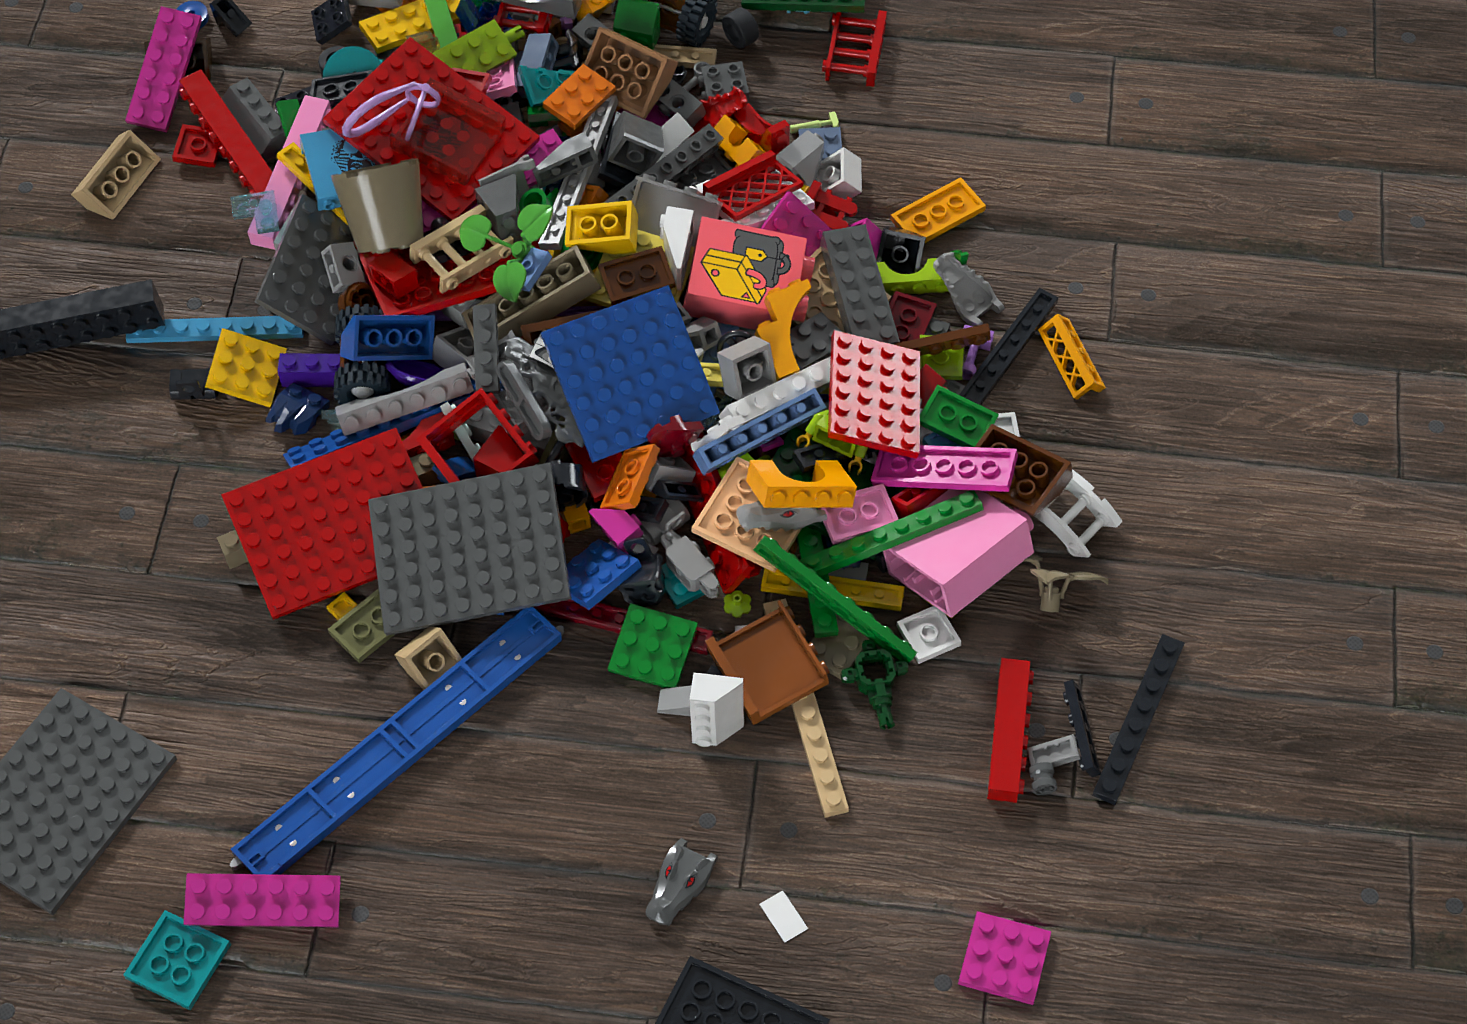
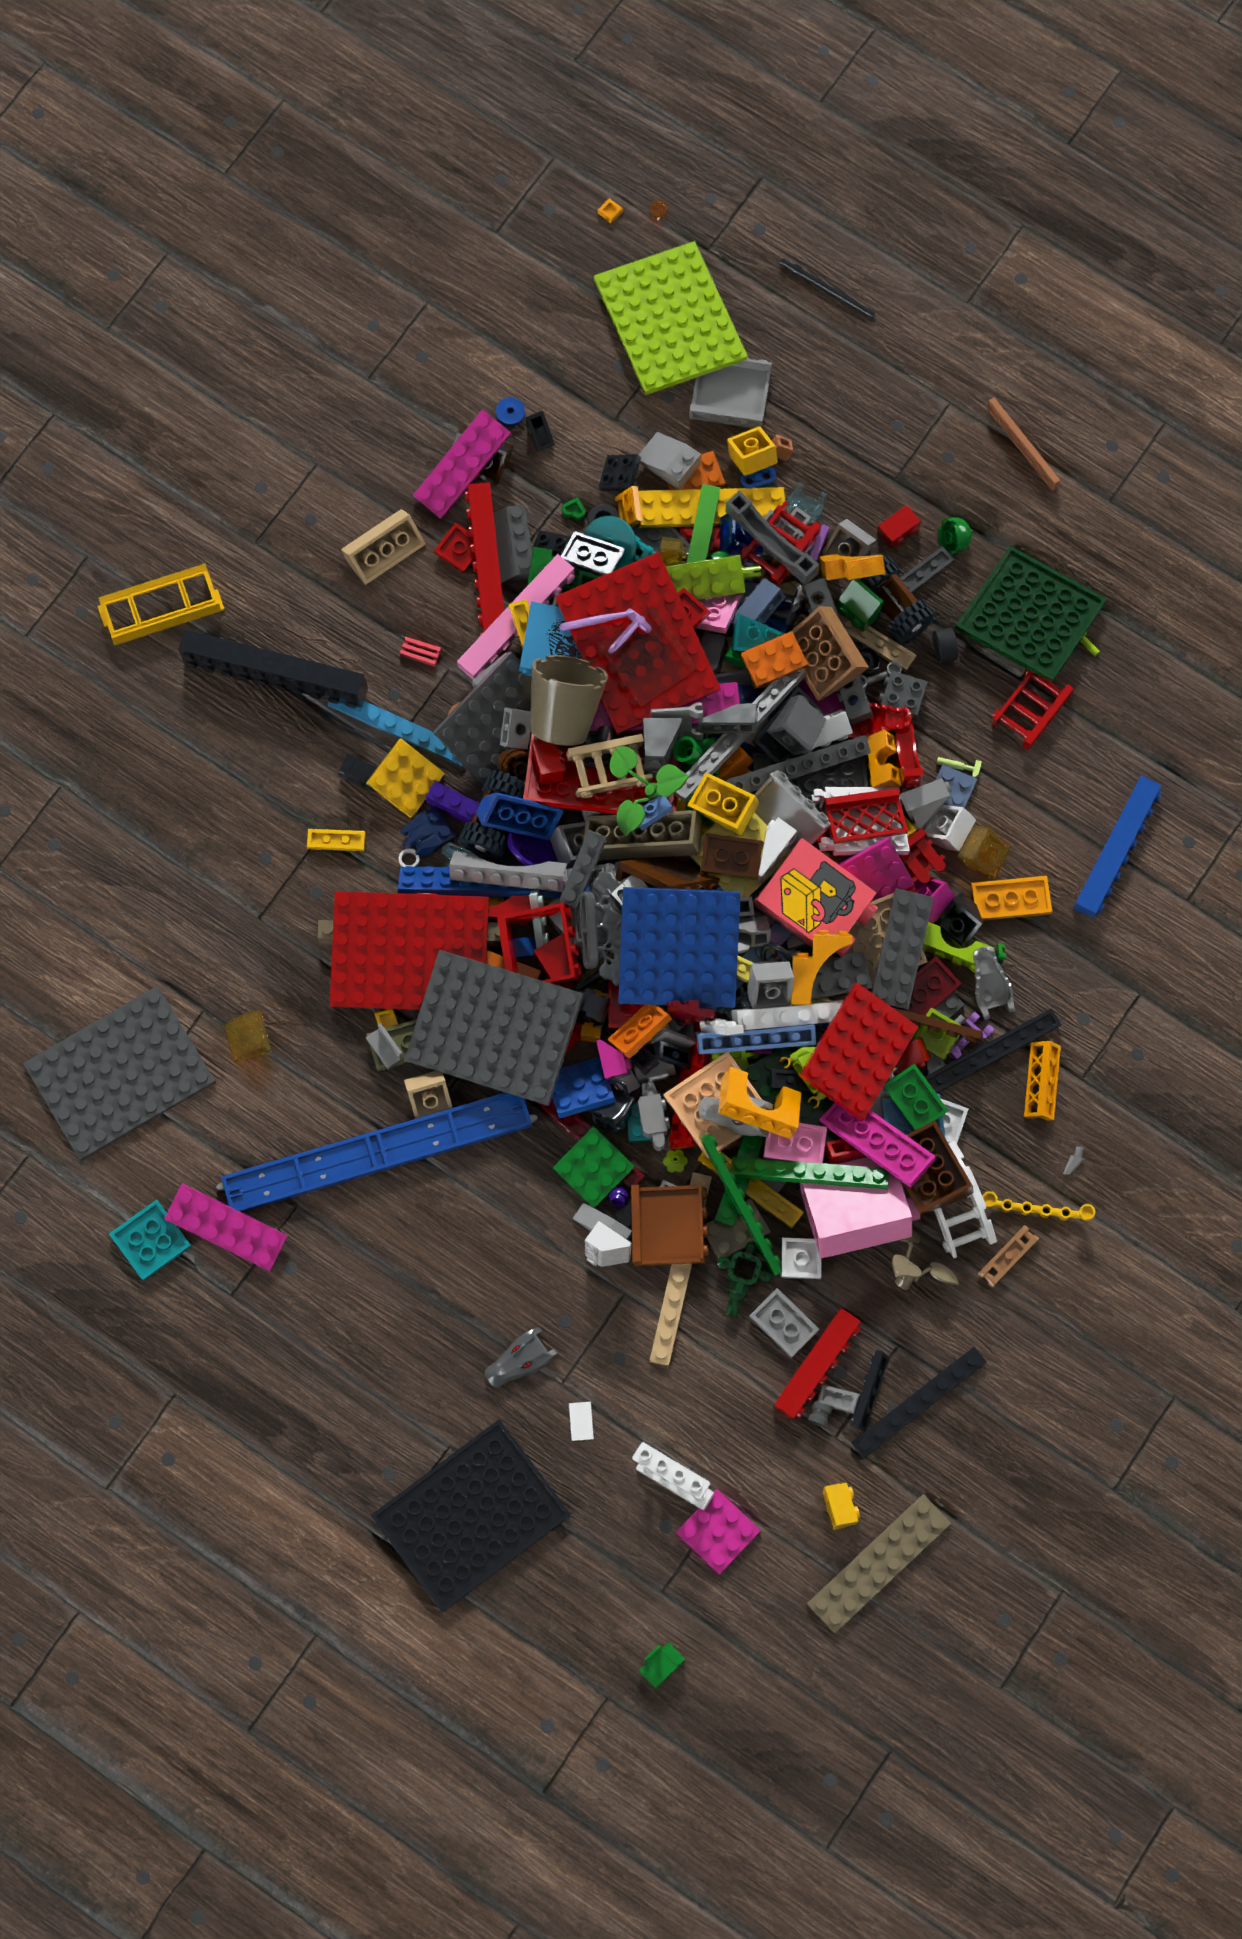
camera: 25 degrees right, 15 degrees up
(192, 691) = (247, 1036): none -> clear yellow slope
(198, 459) = (336, 840): none -> yellow plate
(203, 249) = (403, 653): none -> coral tile
(260, 205) = (476, 645): clear light blue plate -> none
(287, 435) = (405, 851): none -> white piece
(301, 70) = (573, 509): none -> green tile
(356, 628) = (385, 1047): none -> light grey panel
(357, 35) = (629, 506): none -> light orange plate
(696, 664) = (619, 1197): none -> dark purple plate
(885, 182) = (984, 851): none -> clear yellow slope
(923, 914) = (673, 1476): none -> white fence
(948, 705) = (784, 1322): none -> light grey plate
(1013, 127) = (1117, 846): none -> blue brick
(1122, 861) = (840, 1505): none -> yellow slope
(1141, 532) = (1008, 1256): none -> medium nougat plate
(1150, 414) = (1074, 1160): none -> light grey bar
(1195, 450) = (1085, 1213): none -> yellow bar
(1199, 905) = (878, 1563): none -> dark tan plate

